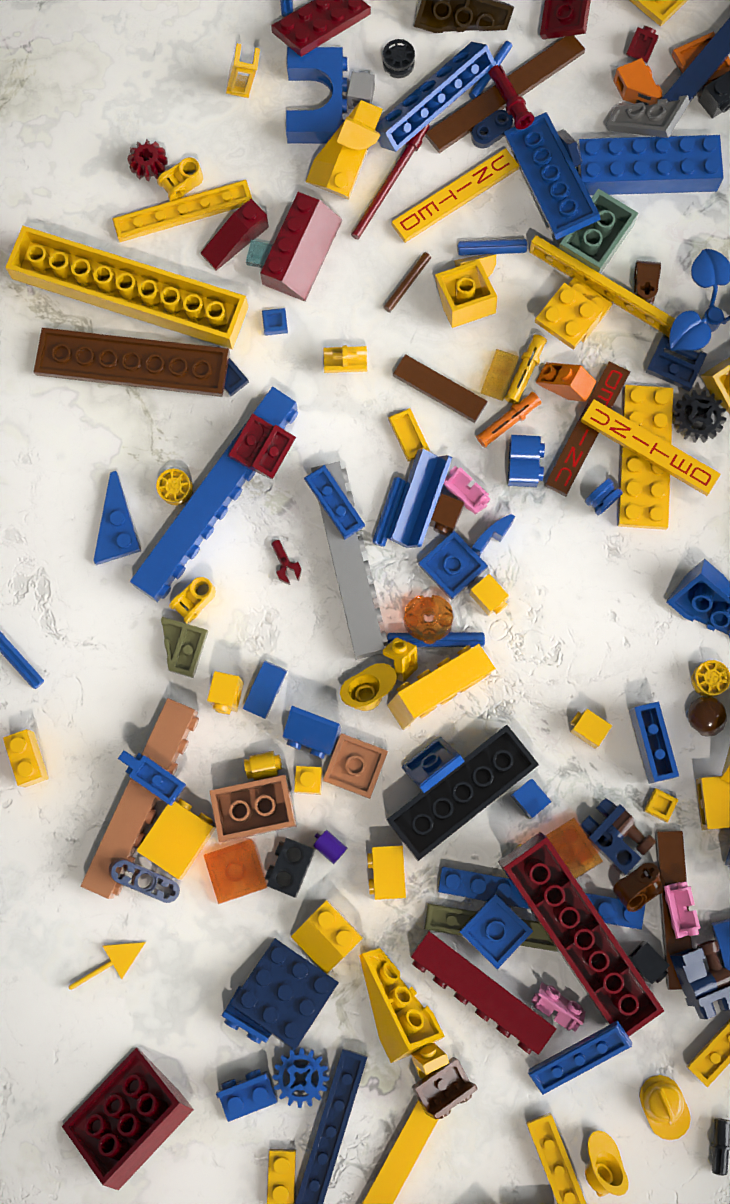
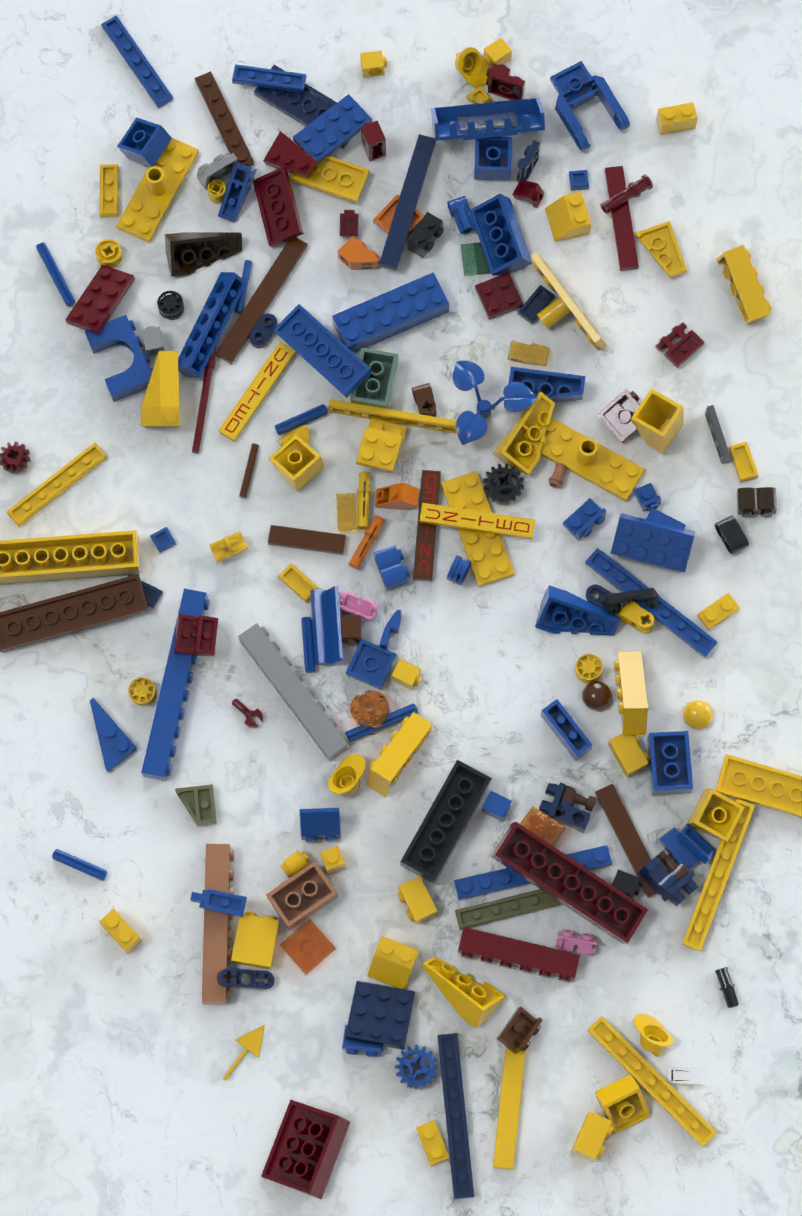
camera: 25 degrees left, 5 degrees down
(179, 180) = (43, 464): yellow piece -> none
(192, 600) = (191, 767): yellow piece -> none
(225, 692) = (246, 822): yellow brick -> none
(235, 234) = (105, 487): dark red slope -> none
(241, 74) = (59, 369): yellow window -> none
(246, 1095) = (383, 1097): blue bracket -> none
(258, 253) = (130, 494): clear light blue tile -> none
(265, 689) = (273, 809): blue slope -> none
(295, 869) = (350, 926): black brick -> none
(300, 247) = (159, 477): slope -> none
(329, 846) = (367, 900): dark purple piece -> none
(334, 502) = (266, 653): blue tile -> none
(355, 766) = (362, 836): nougat plate -> none
(357, 135) = (168, 378): yellow brick -> none
(404, 657) = (364, 743): yellow bracket -> none
(429, 1059) = (501, 1015): yellow bracket -> none
(432, 764) = (416, 810): blue plate -> none
(496, 931) = (510, 907): blue plate -> none
(514, 104) = (273, 307): dark red pin -> none
(571, 147) = (327, 323): dark blue tile -> none
(580, 1057) = (604, 967): blue tile -> none
(590, 728) = (517, 738): yellow brick -> none
(638, 889) = (597, 835): reddish brown piece -> none
(650, 119) = (376, 281): light grey wing -> none
(661, 805) = (590, 772): yellow tile -> none
(665, 1107) = (679, 979): yellow piece -> none
(675, 369) = (471, 457): dark blue plate -> none
(678, 898) = (627, 830): bright pink hinge -> none

